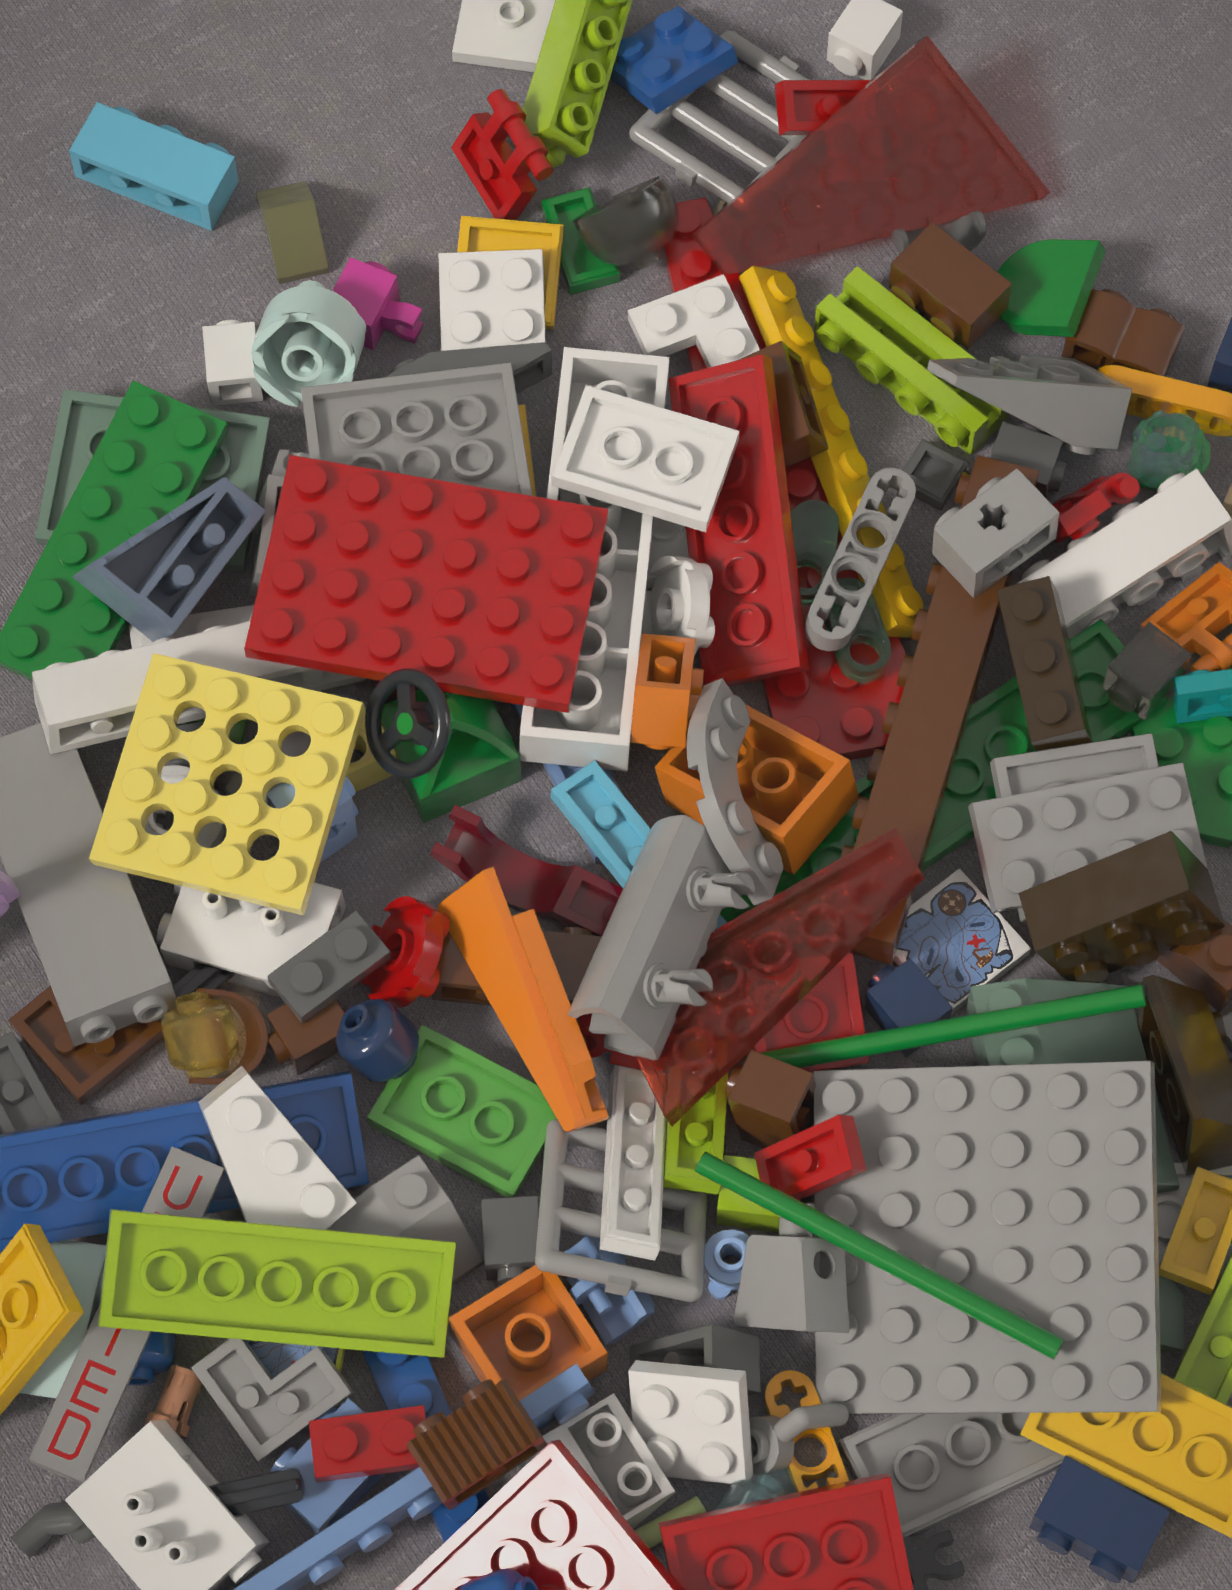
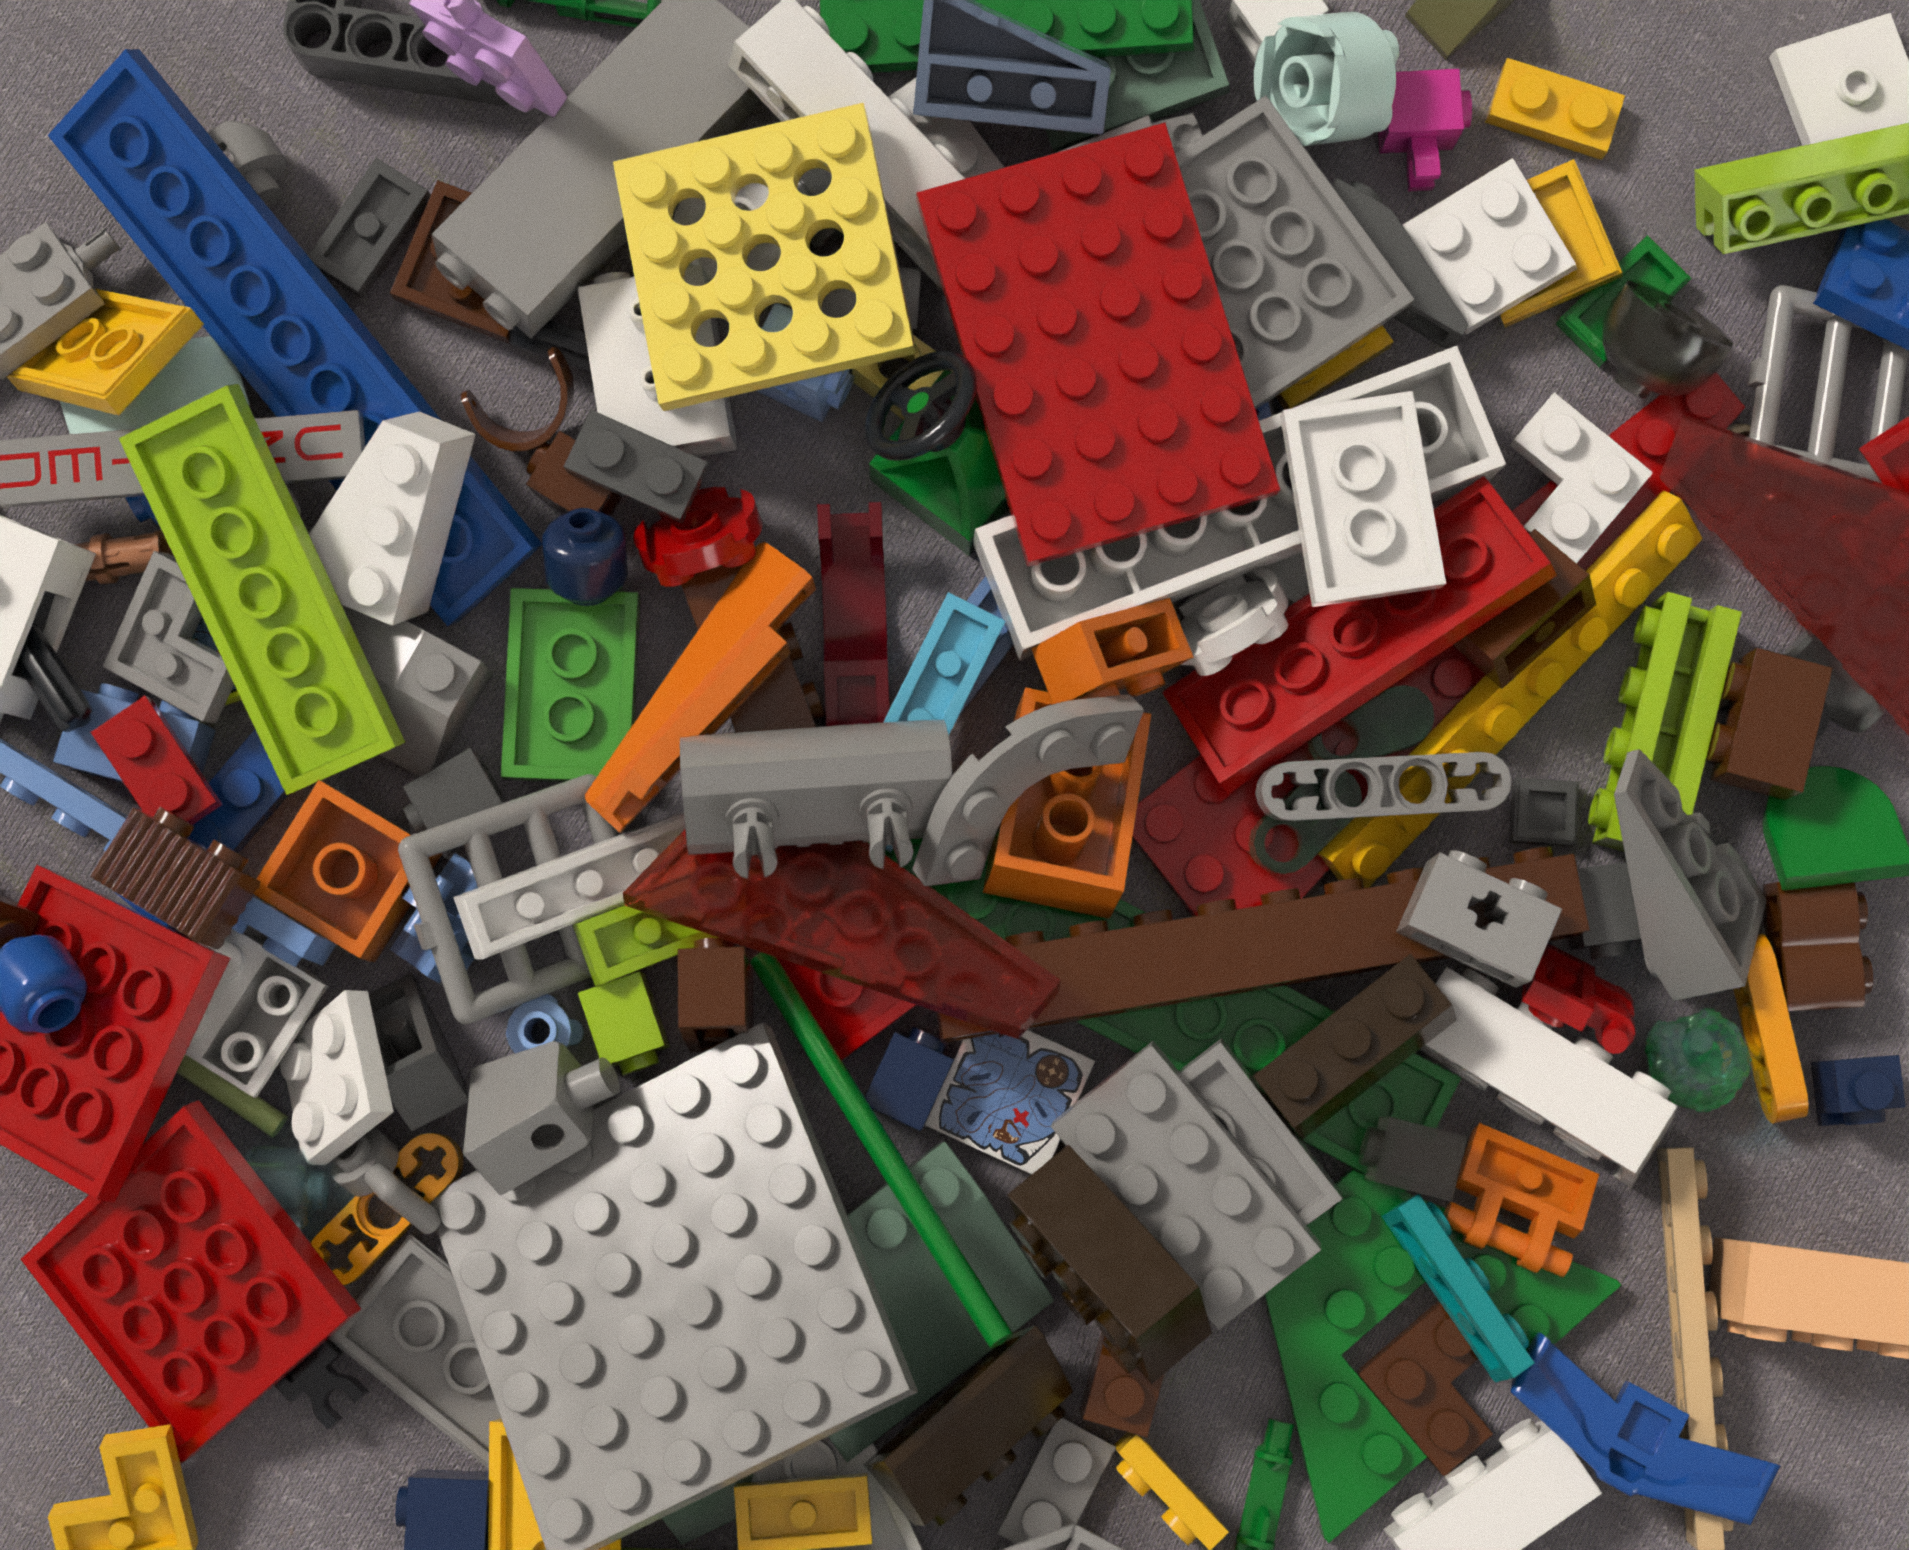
camera: 60 degrees right, 15 degrees up
(200, 1035) = (507, 376): clear yellow head -> none
(410, 216) = (1555, 108): none -> yellow plate
(493, 165) = (1670, 167): red plate -> none
(813, 1158) = (654, 1068): red plate -> none
(880, 1255) = (579, 1193): green piece -> none

